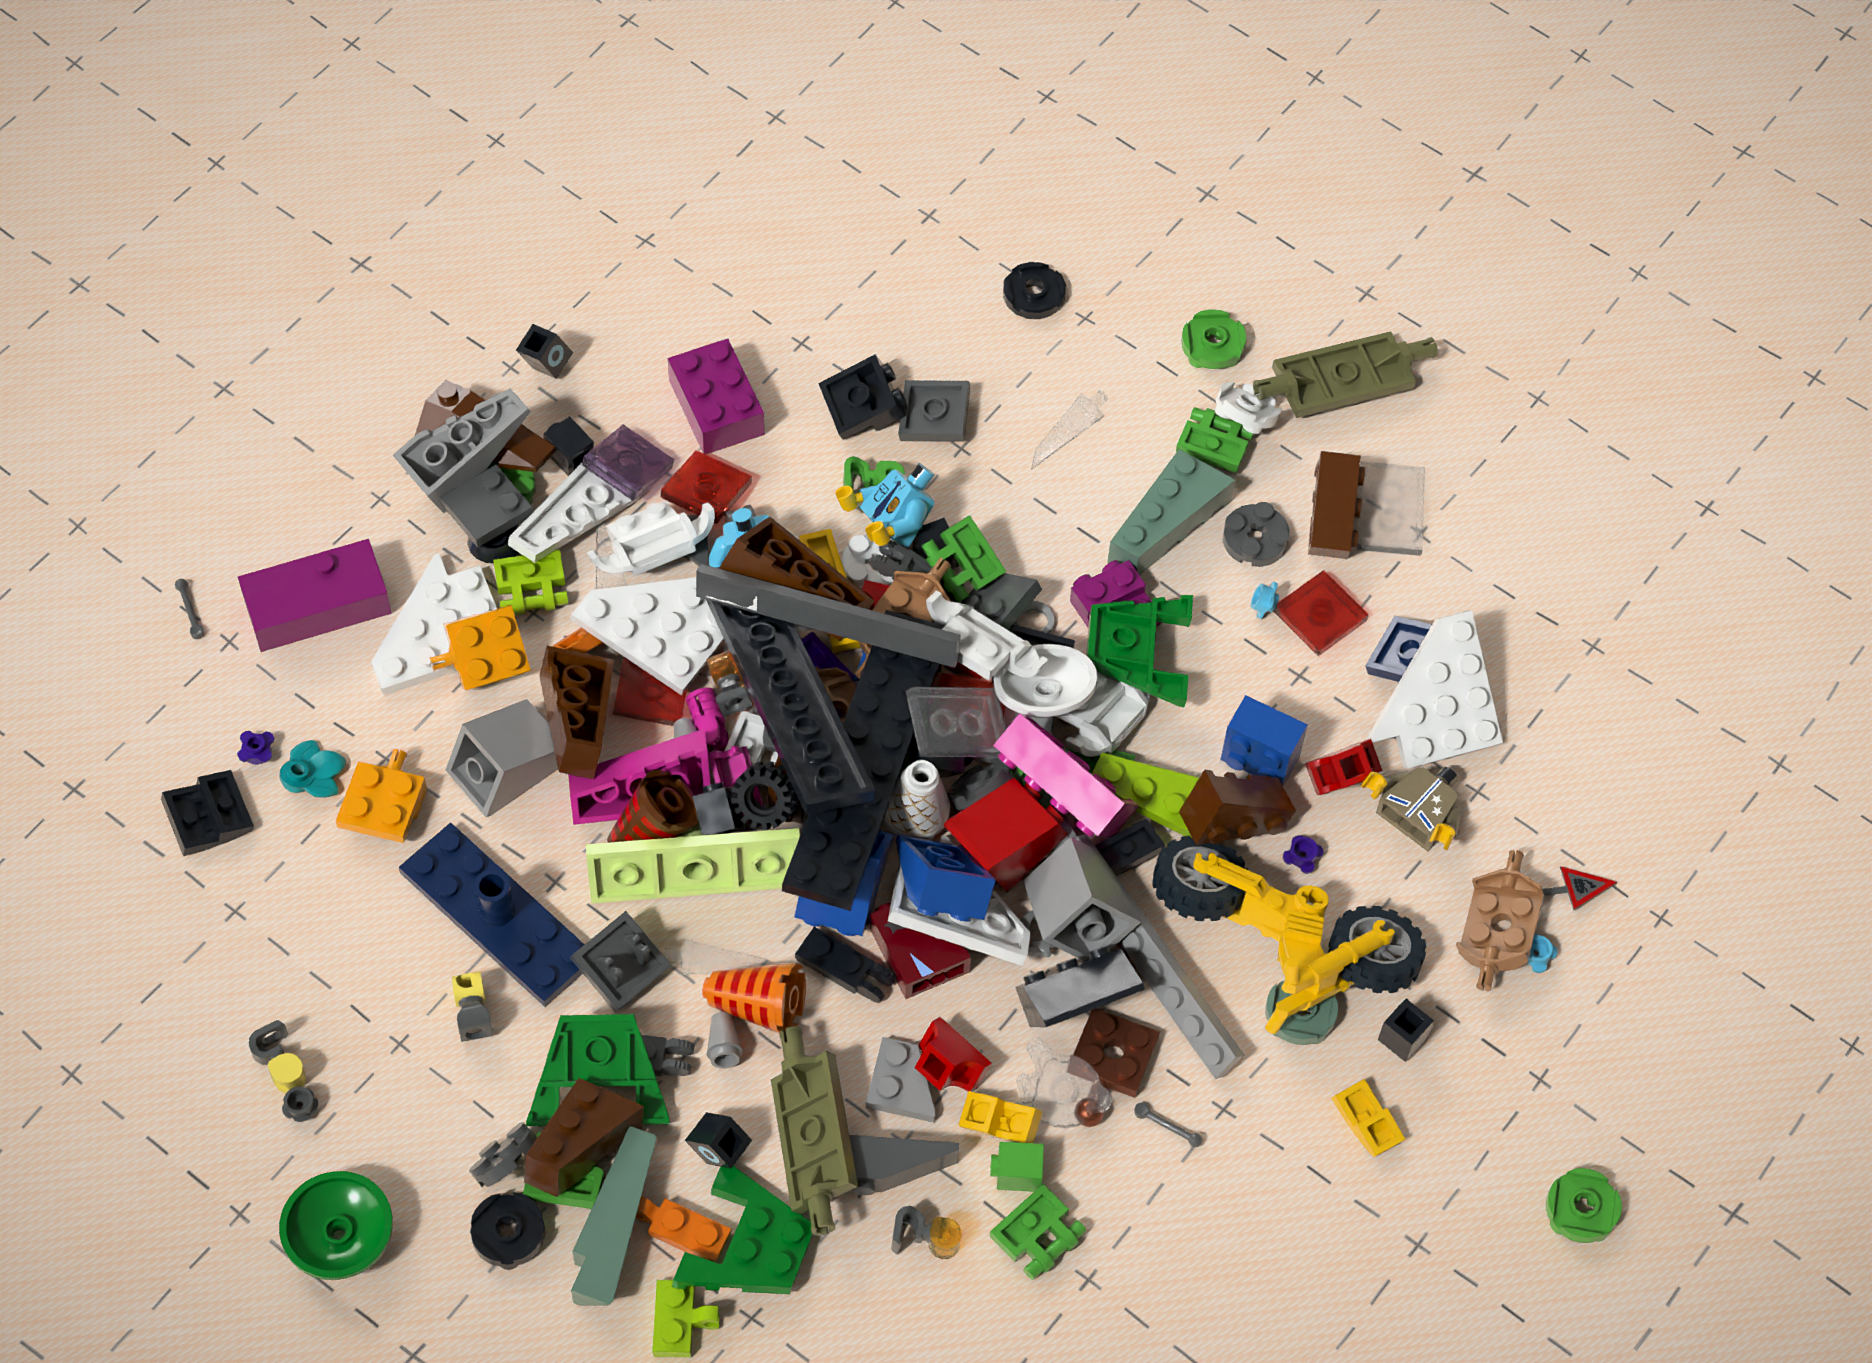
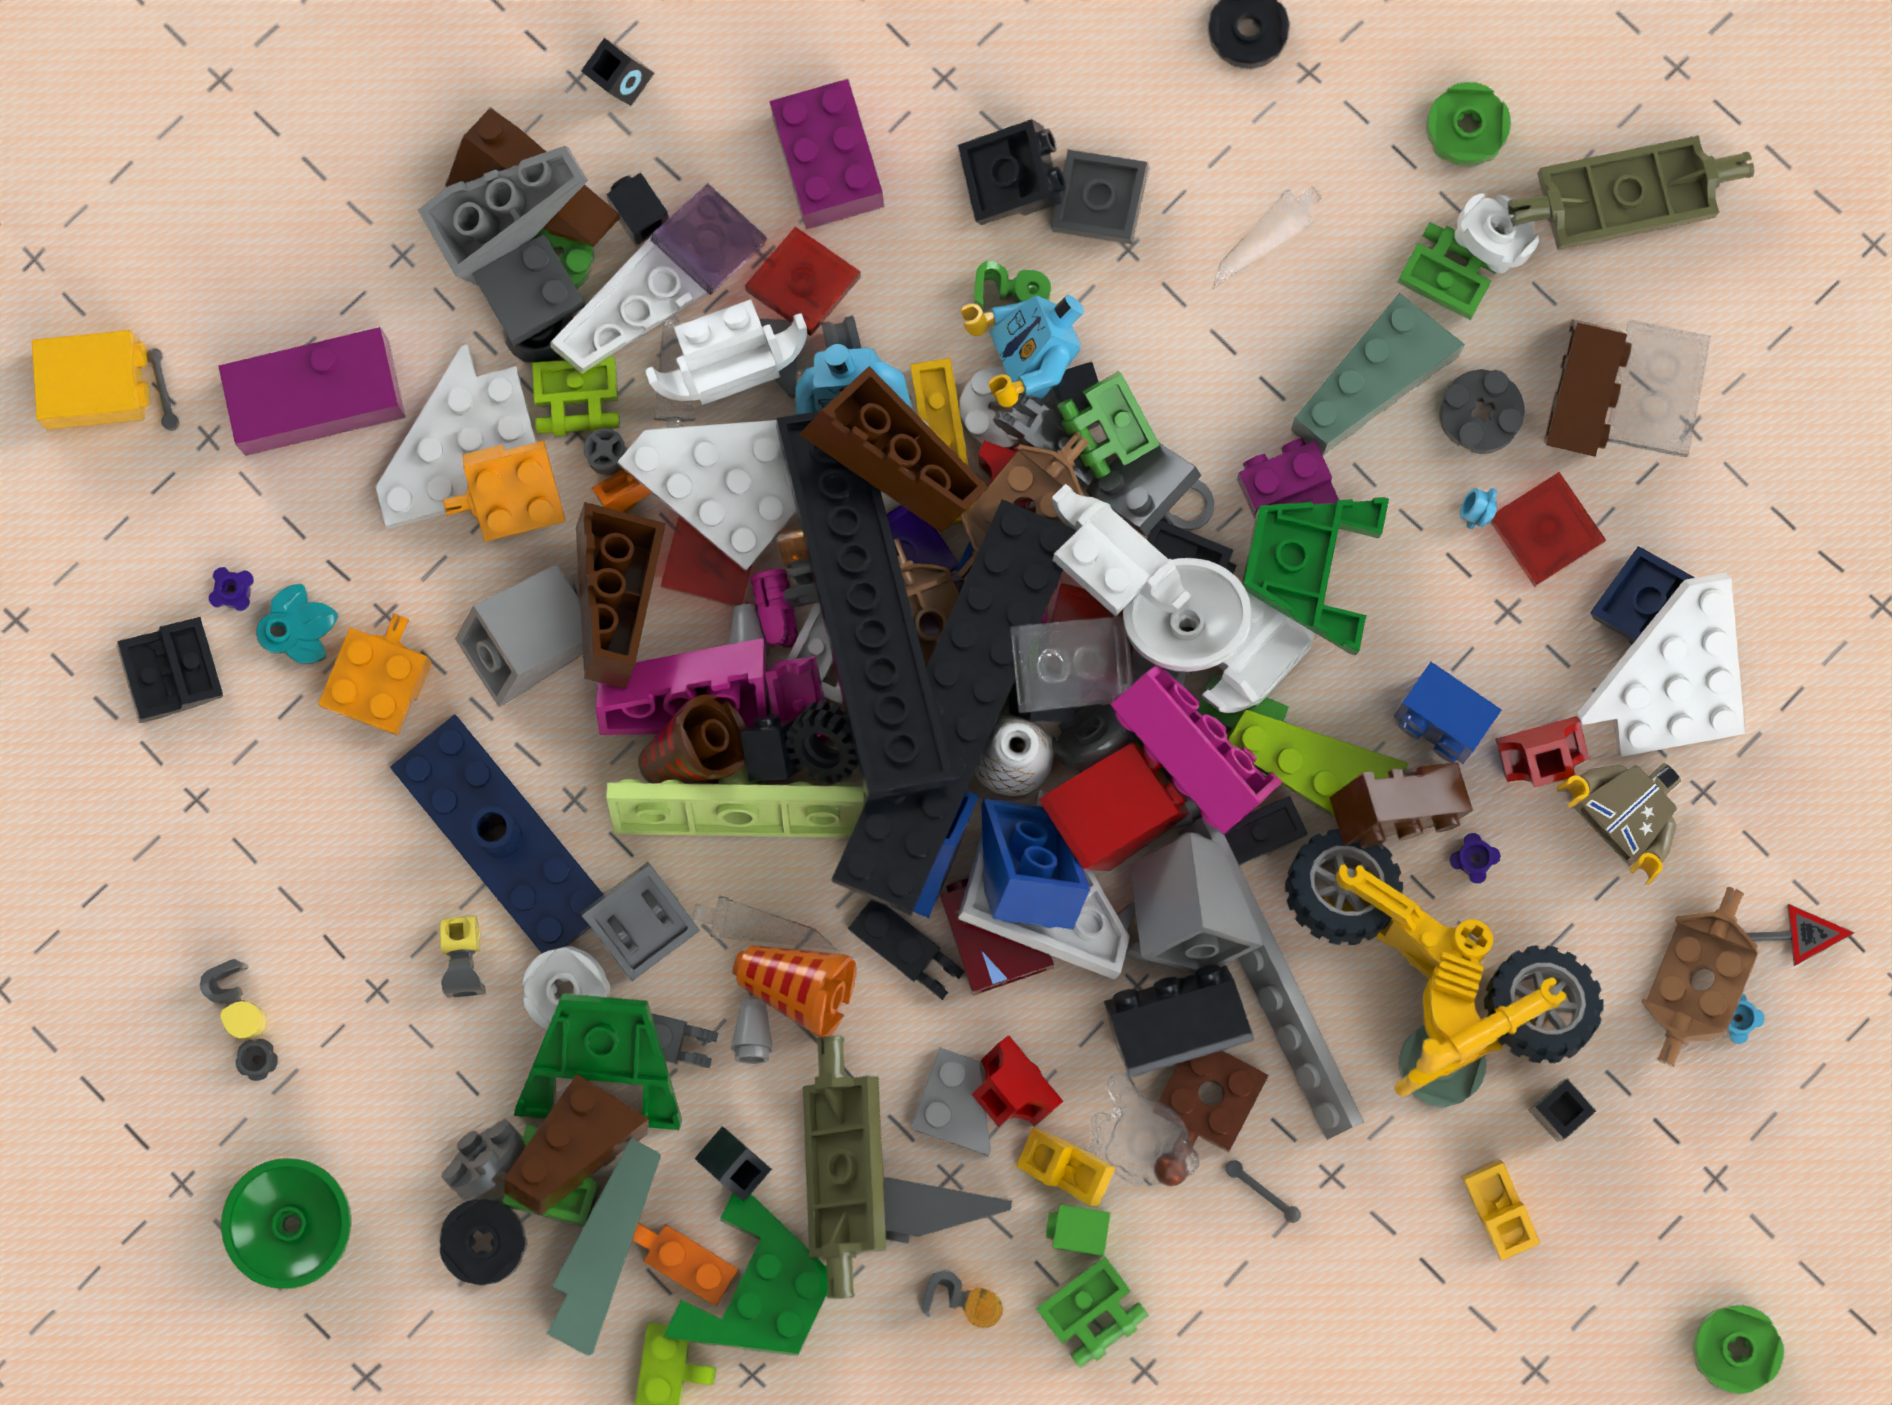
camera: 15 degrees right, 20 degrees up
(129, 603) = (89, 379): none -> yellow brick
(547, 1004) = (563, 964): none -> white plate
(558, 611) = (601, 444): none -> dark grey wheel
(828, 615) = (927, 511): dark grey tile -> none

